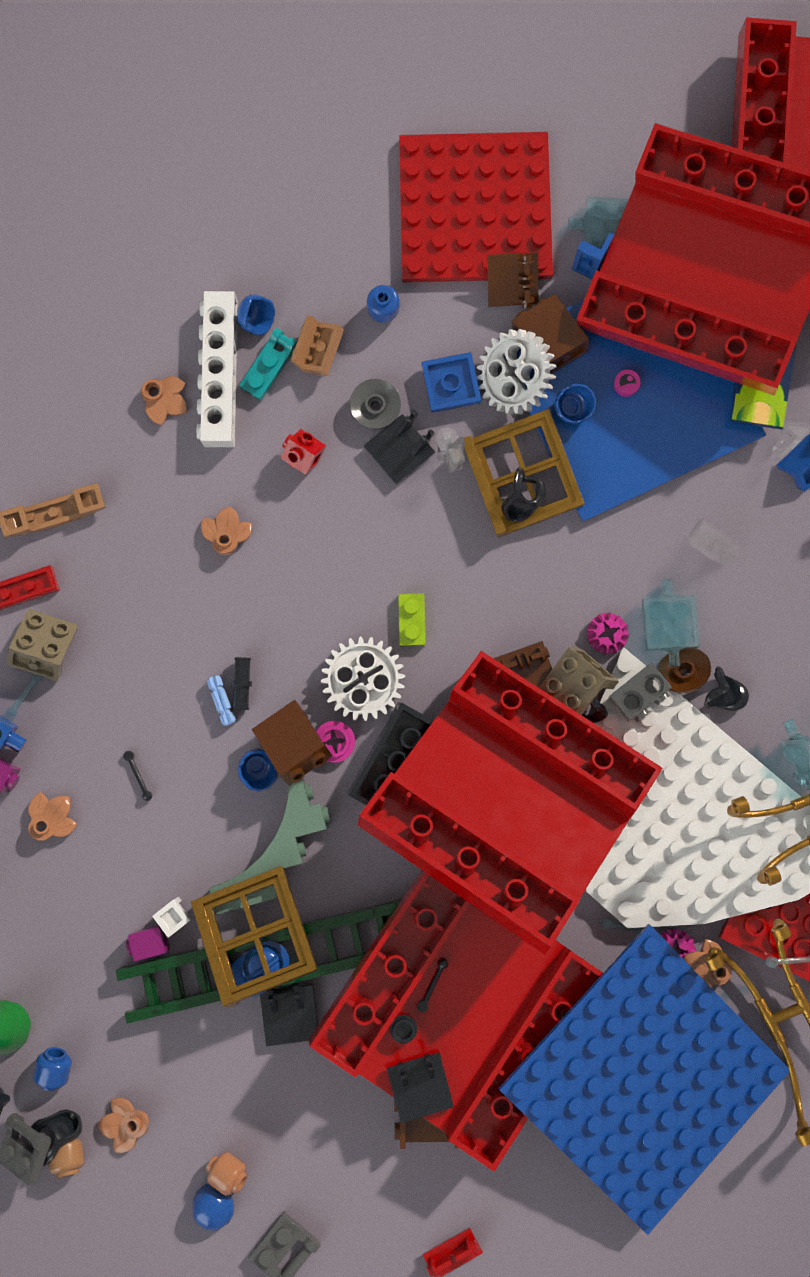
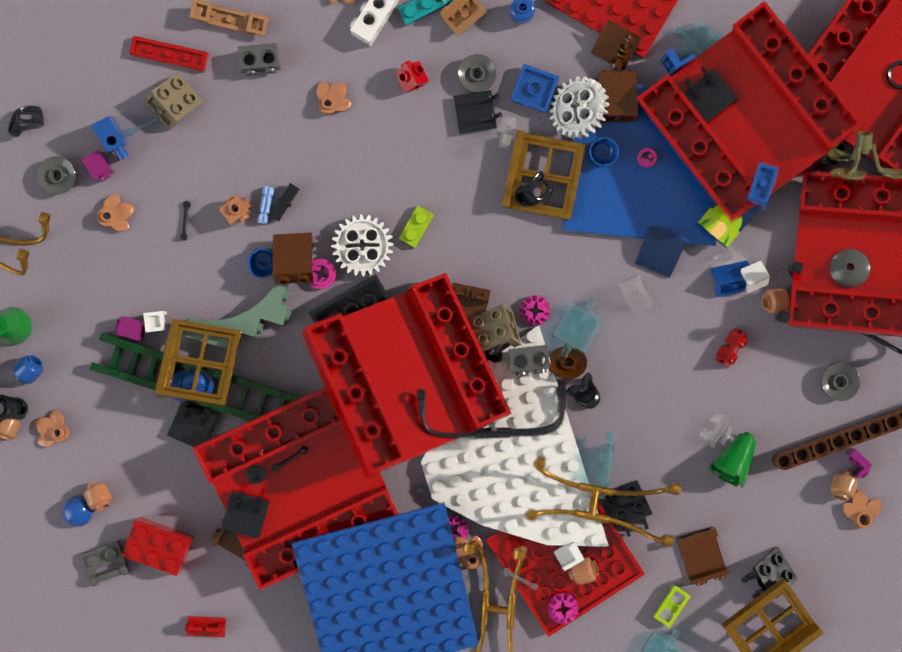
camera: 25 degrees right, 5 degrees up
(111, 530) = (259, 52): none -> dark grey brick
(181, 730) = (231, 204): none -> nougat brick
(335, 1190) = (158, 546): none -> red brick
(656, 265) = (709, 94): none -> black plate
(708, 480) = (660, 252): none -> dark blue slope
(716, 721) = (498, 432): none -> black bar
(788, 325) = (762, 184): none -> blue panel

